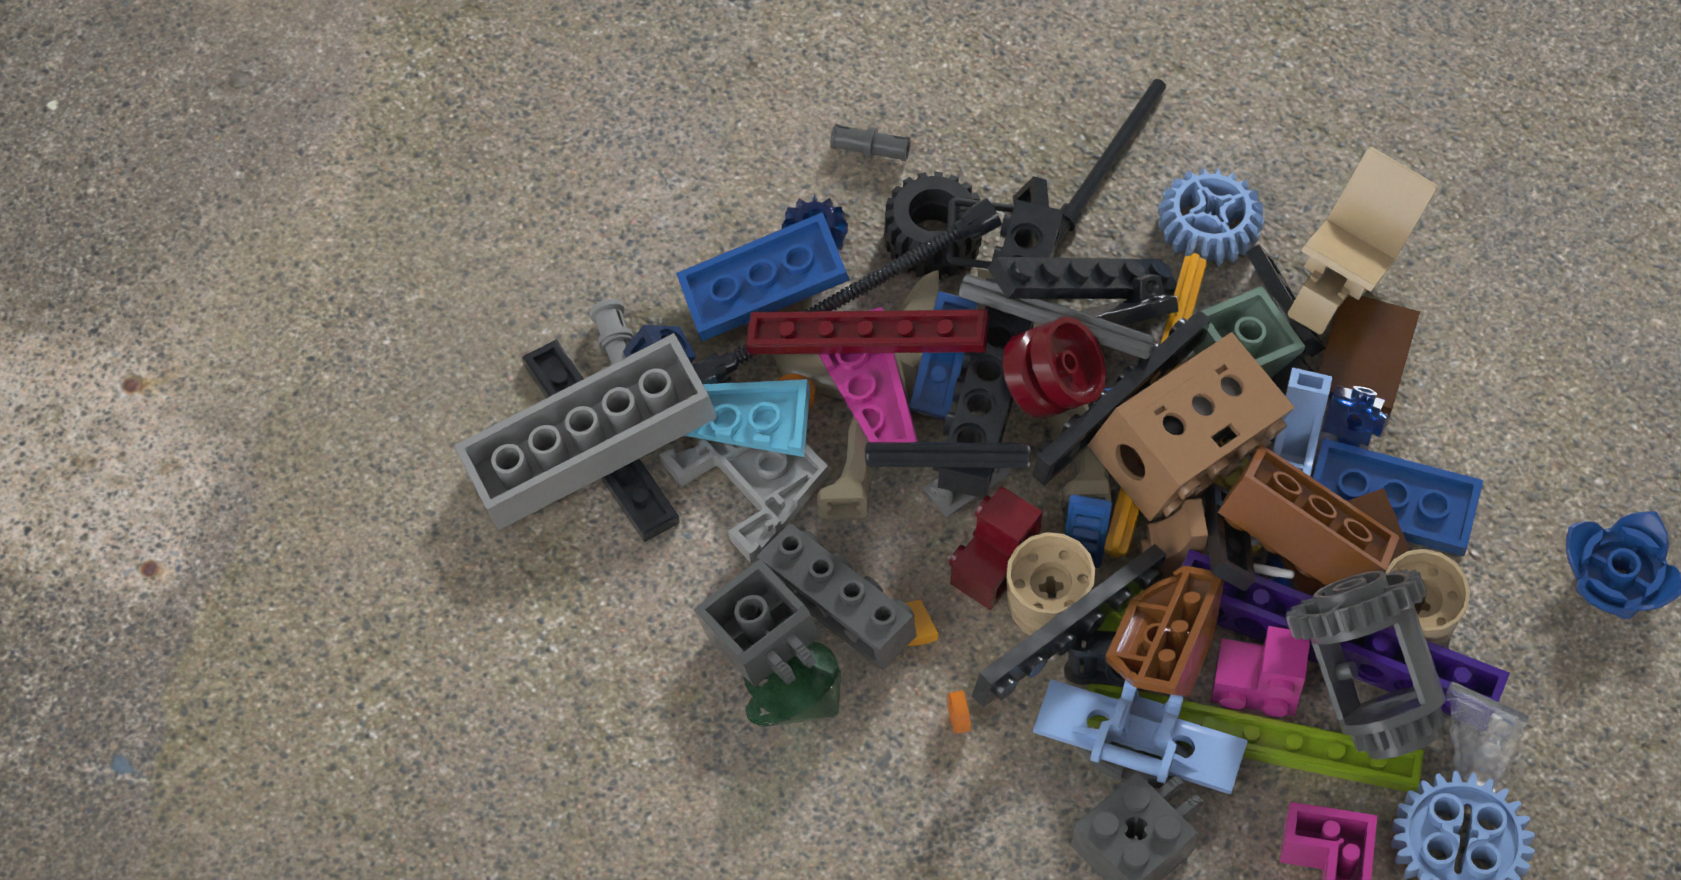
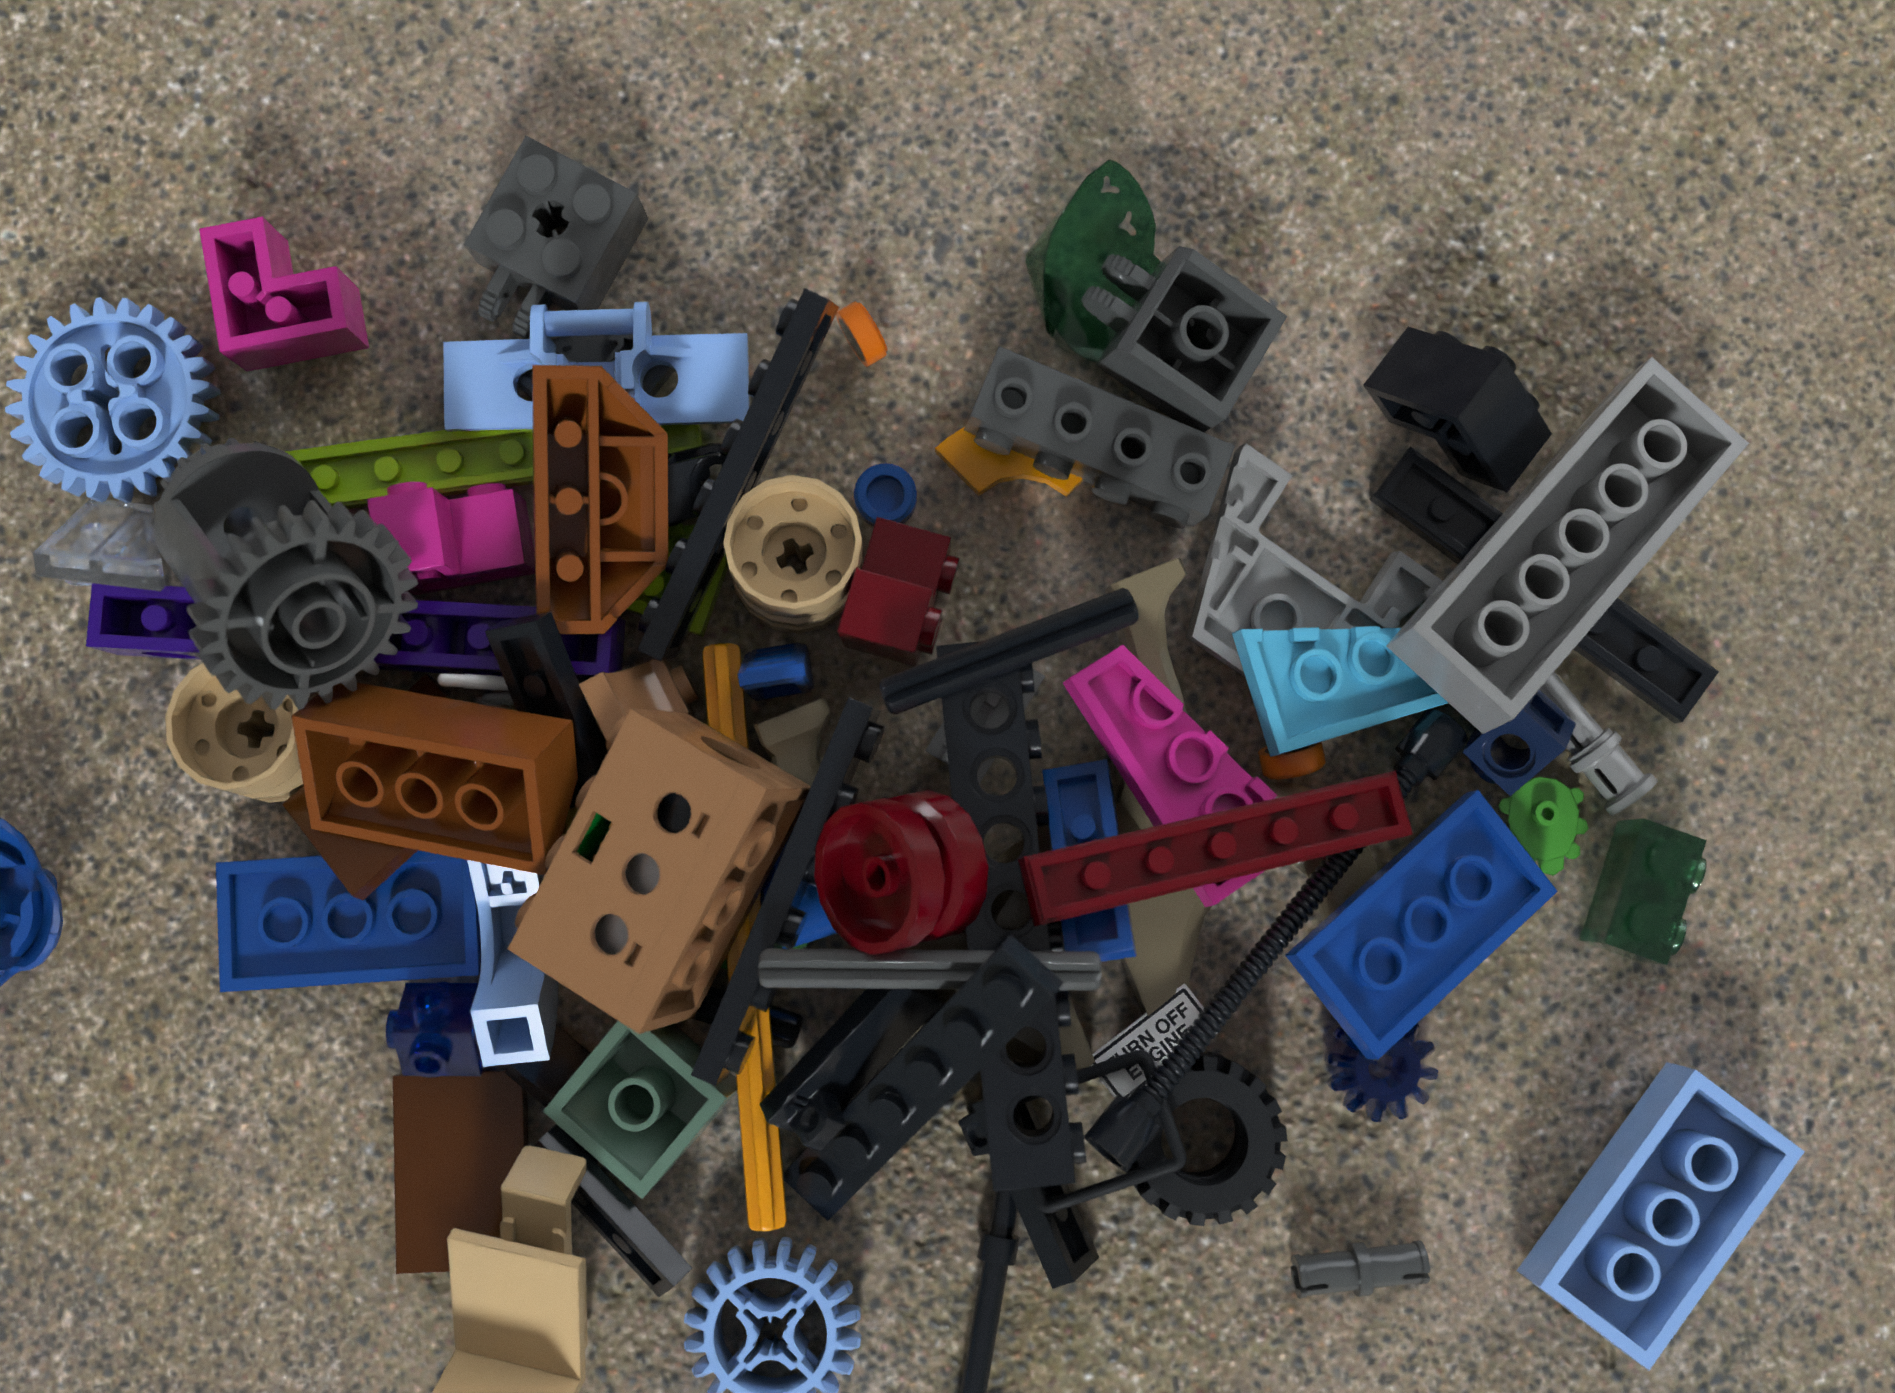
camera: 160 degrees right, 25 degrees up
(612, 534) = (1464, 402): none -> black brick
(626, 258) = (1645, 891): none -> clear green brick
(661, 312) = (1546, 821): none -> bright green piece
(697, 110) = (1660, 1212): none -> light blue brick
(938, 269) = (1149, 1033): none -> white sticker
(979, 622) = (885, 493): none -> blue tile

